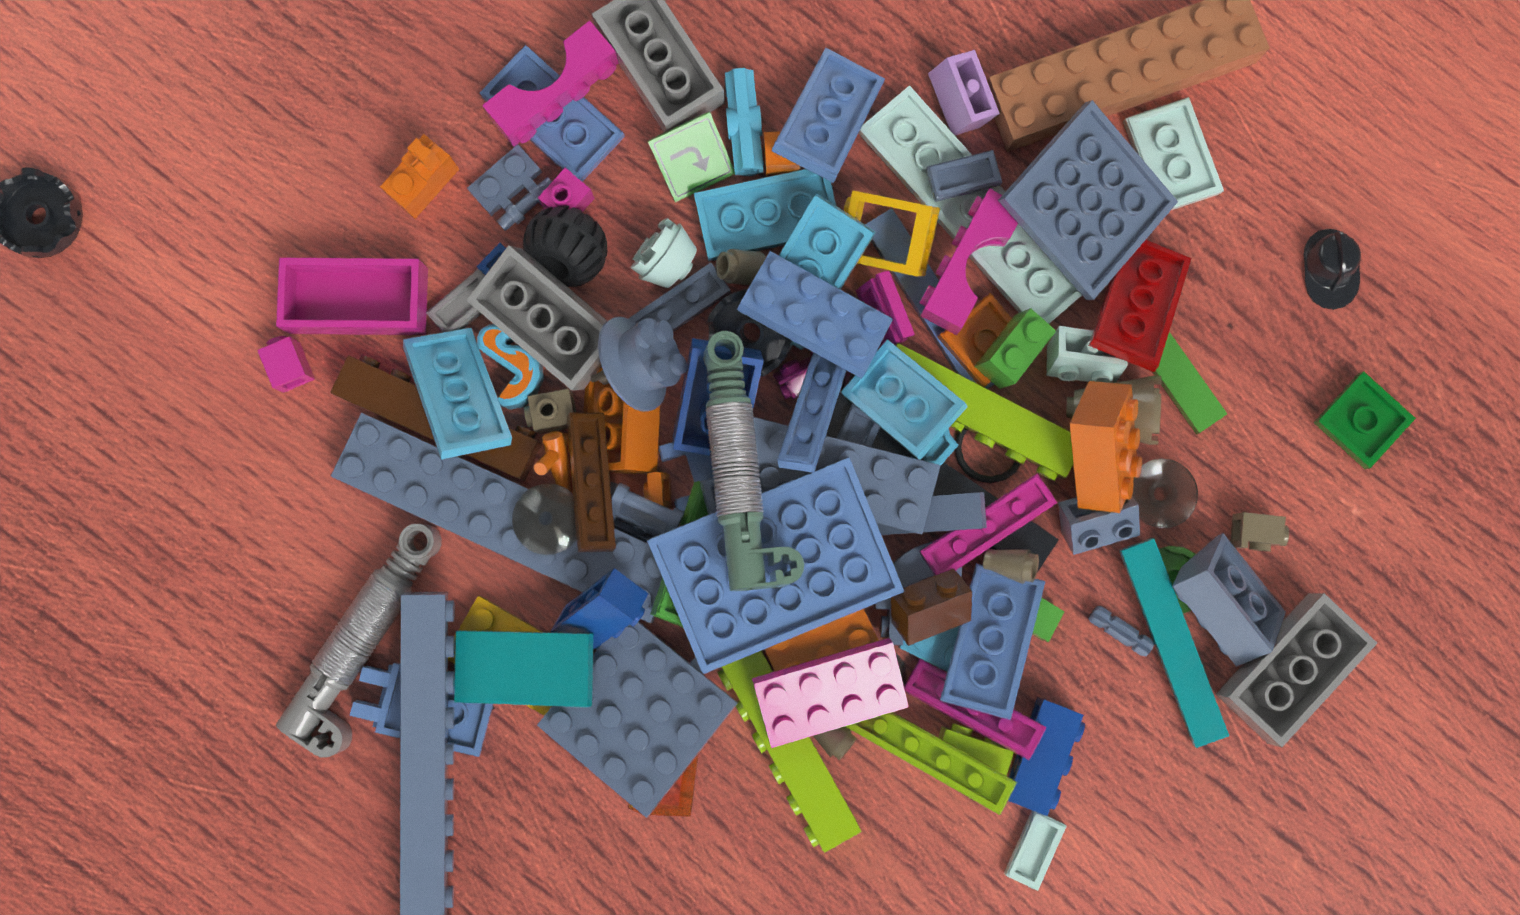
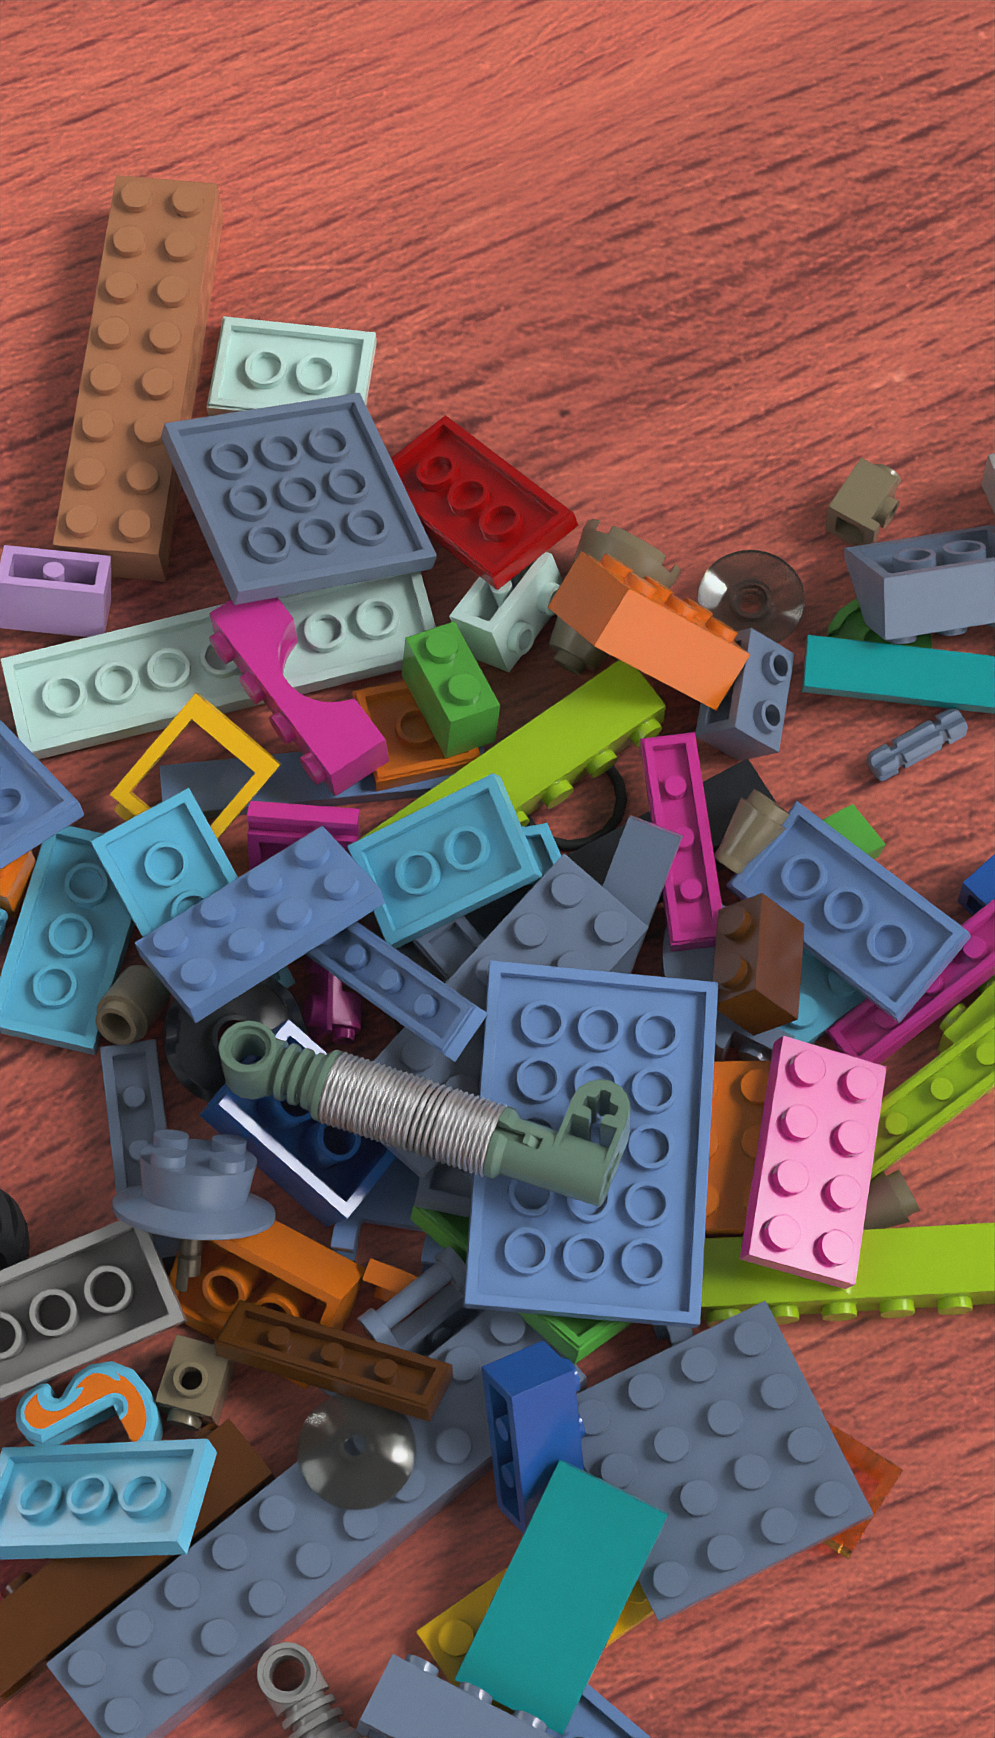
camera: 60 degrees left, 15 degrees down
(556, 459) = (270, 1401): orange piece -> none
(665, 255) = (55, 1104): light aqua cone -> none
(963, 176) = (170, 646): sand blue tile -> none
(1188, 388) = (627, 502): bright green tile -> none
(1332, 268) = (553, 252): black piece -> none
(1364, 420) = (780, 307): green plate -> none

